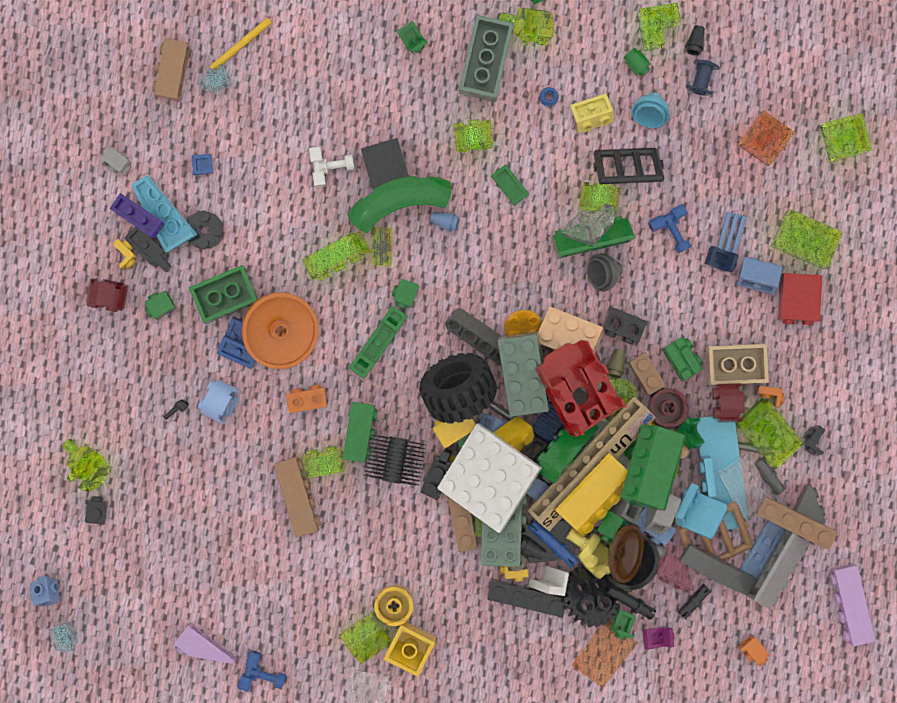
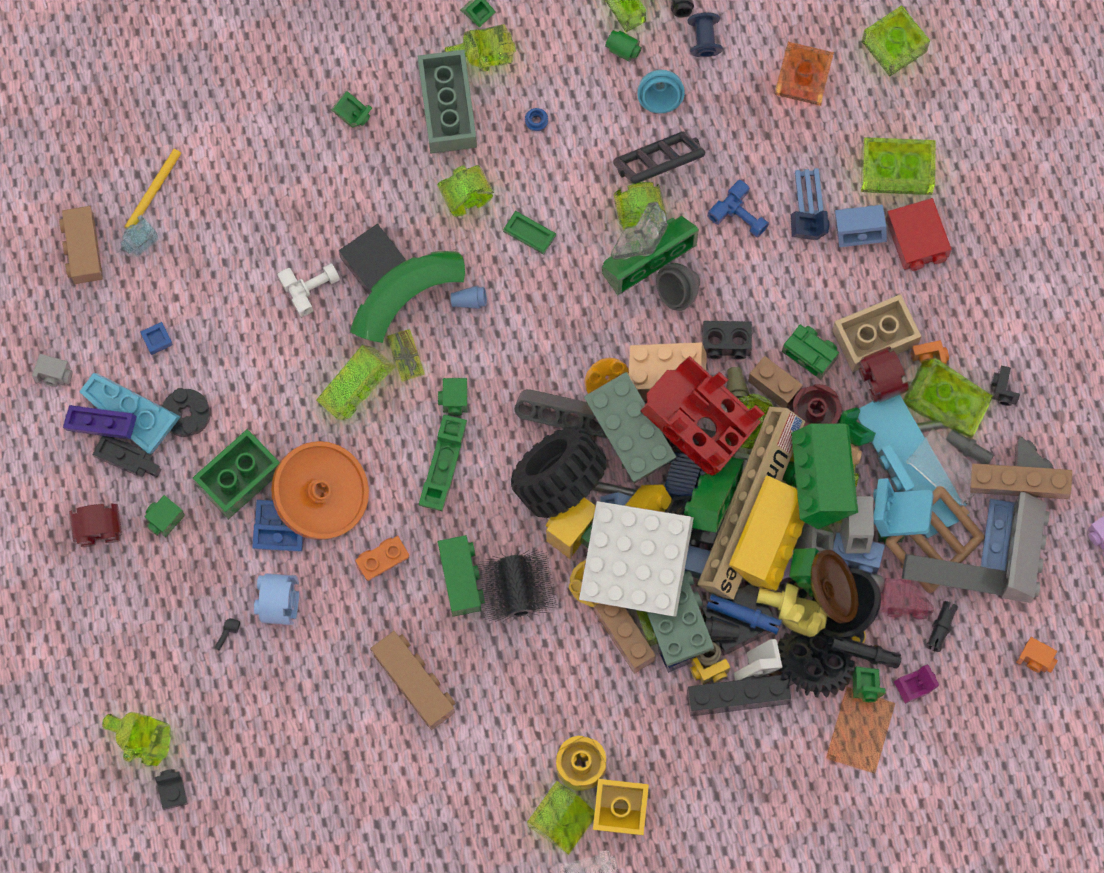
camera: 20 degrees left, 15 degrees down
(126, 249) = (100, 467): yellow bracket -> none
(324, 462) = (430, 627): clear neon green brick -> none
(436, 473) = (572, 576): black hinge -> none
(592, 113) = (595, 119): light yellow bracket -> none

